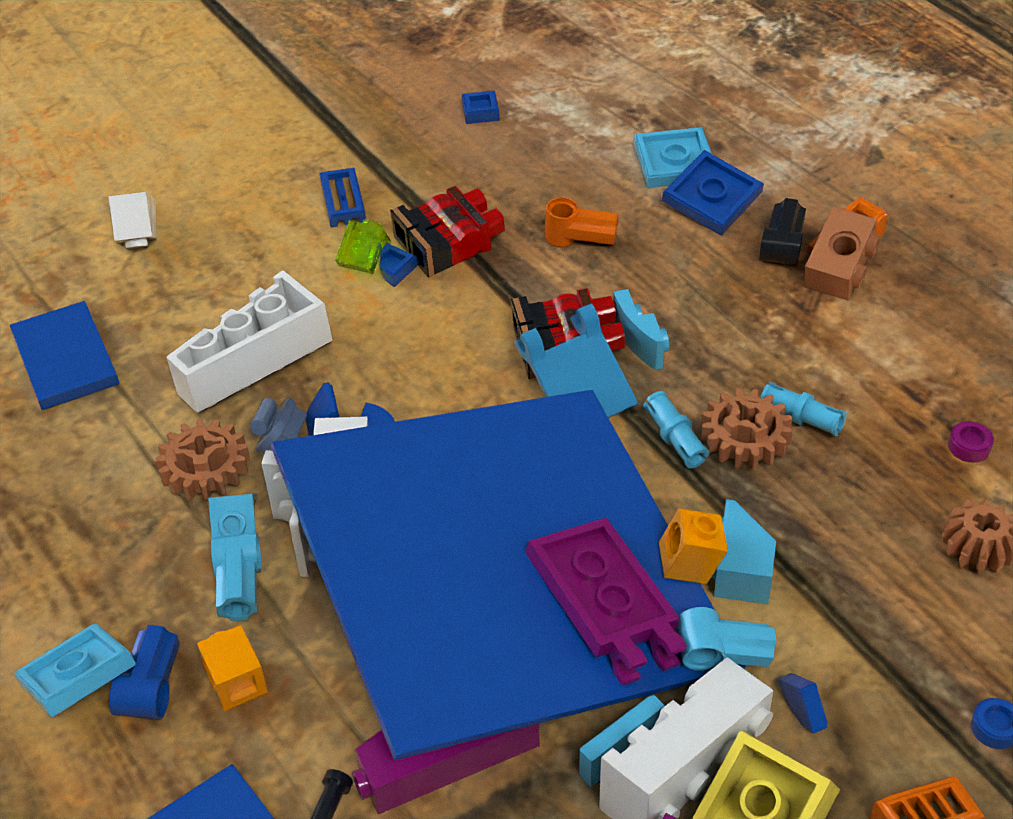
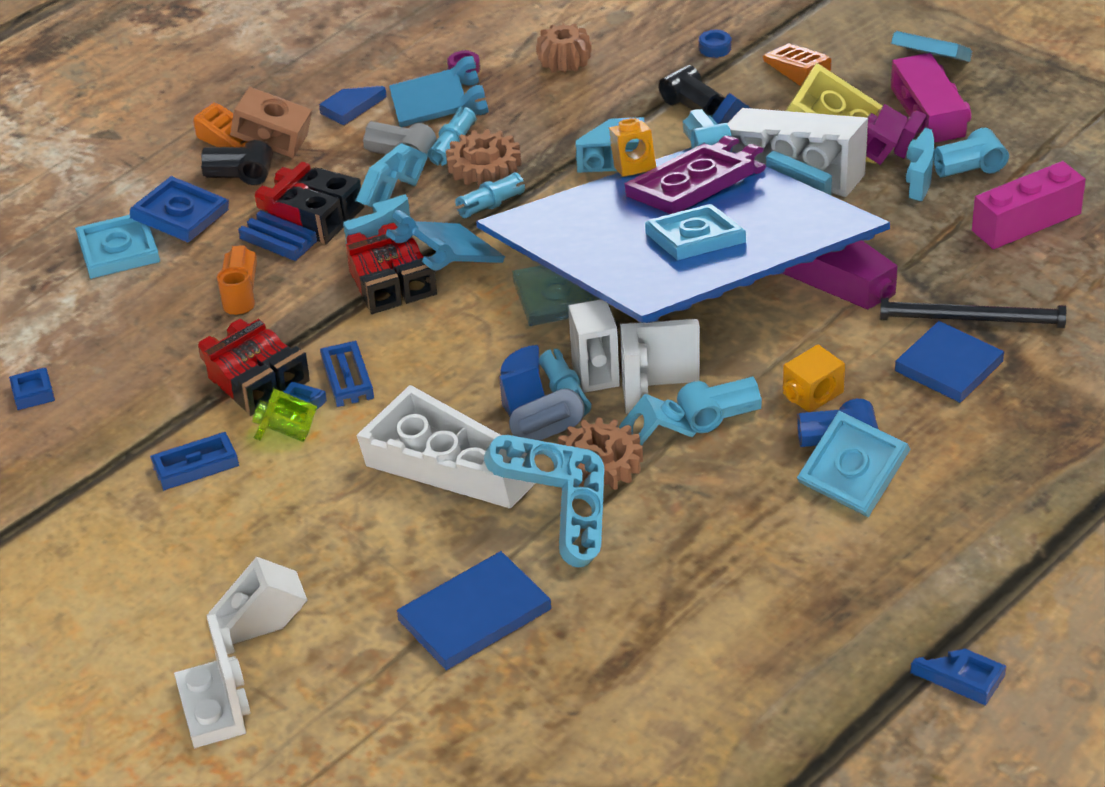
camera: 100 degrees left, 5 degrees down
(51, 184) = (210, 694): none -> white bracket
(168, 356) = (565, 476): none -> medium azure beam
(420, 298) = (352, 391): none -> blue tile
(451, 546) = (695, 231): none -> medium azure tile
(651, 259) = (280, 232): none -> blue tile
(696, 282) = (312, 199): none -> black hips
(702, 327) = (400, 164): none -> medium azure tile
(796, 362) = (384, 137): none -> light grey piece
(863, 656) = (687, 88): none -> black piece
(894, 332) = (351, 103): none -> blue tile
(900, 404) = (438, 94): none -> dark azure flag

